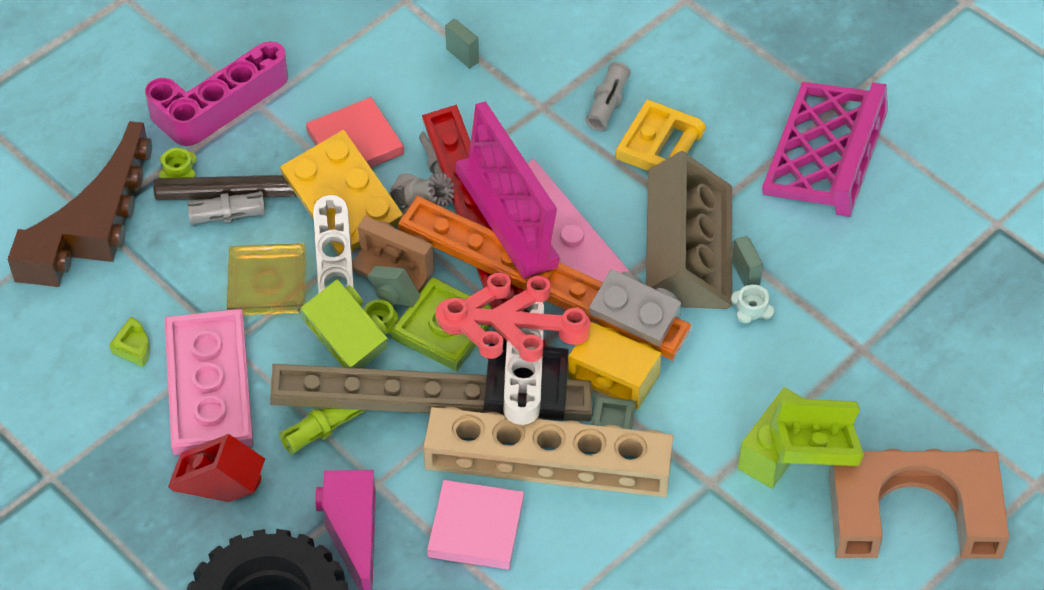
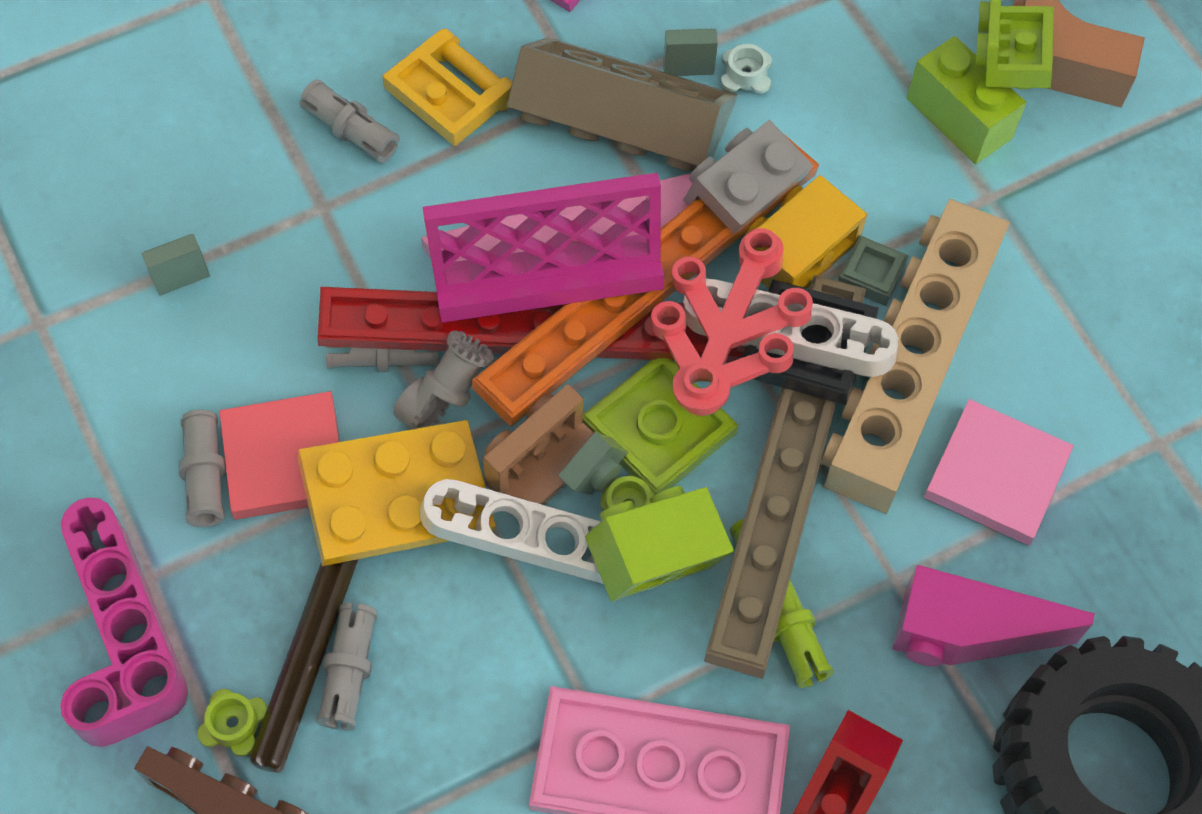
camera: 75 degrees left, 10 degrees up
(267, 278) = (501, 640): clear yellow tile -> none
(329, 101) = (202, 468): none -> light grey pin

